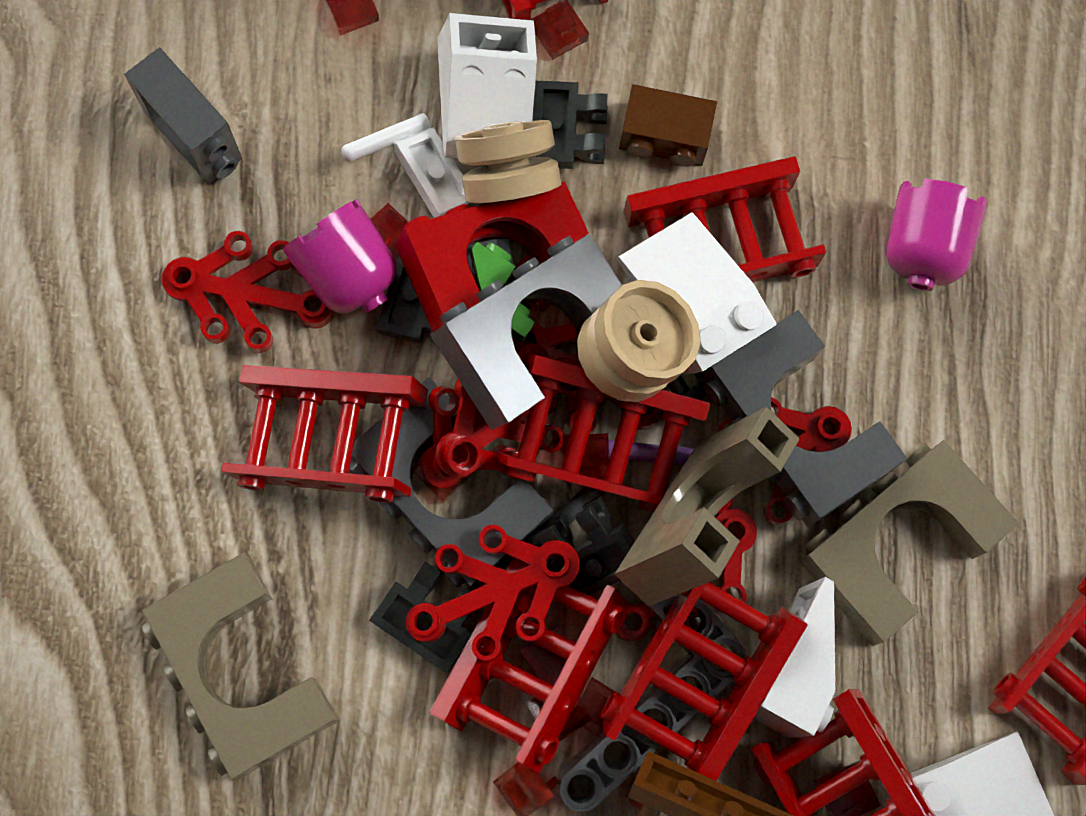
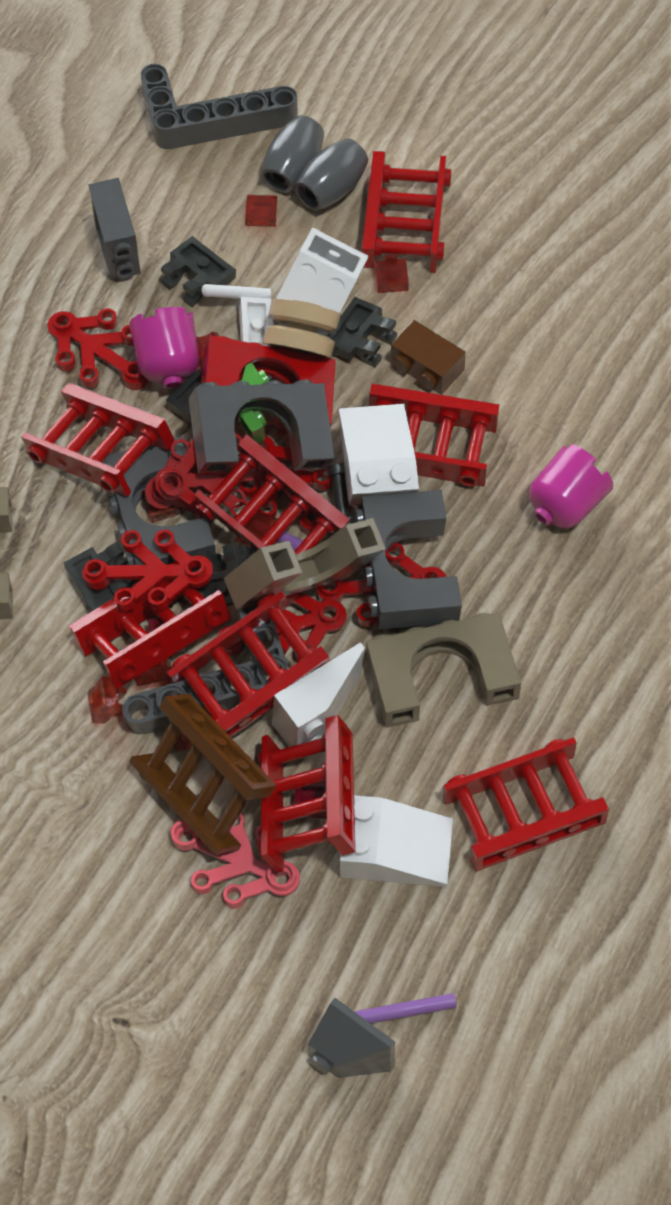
camera: 35 degrees right, 15 degrees down
(316, 116) = (200, 264): none -> pearl dark grey plate
(638, 341) = (314, 451): tan wheel -> none

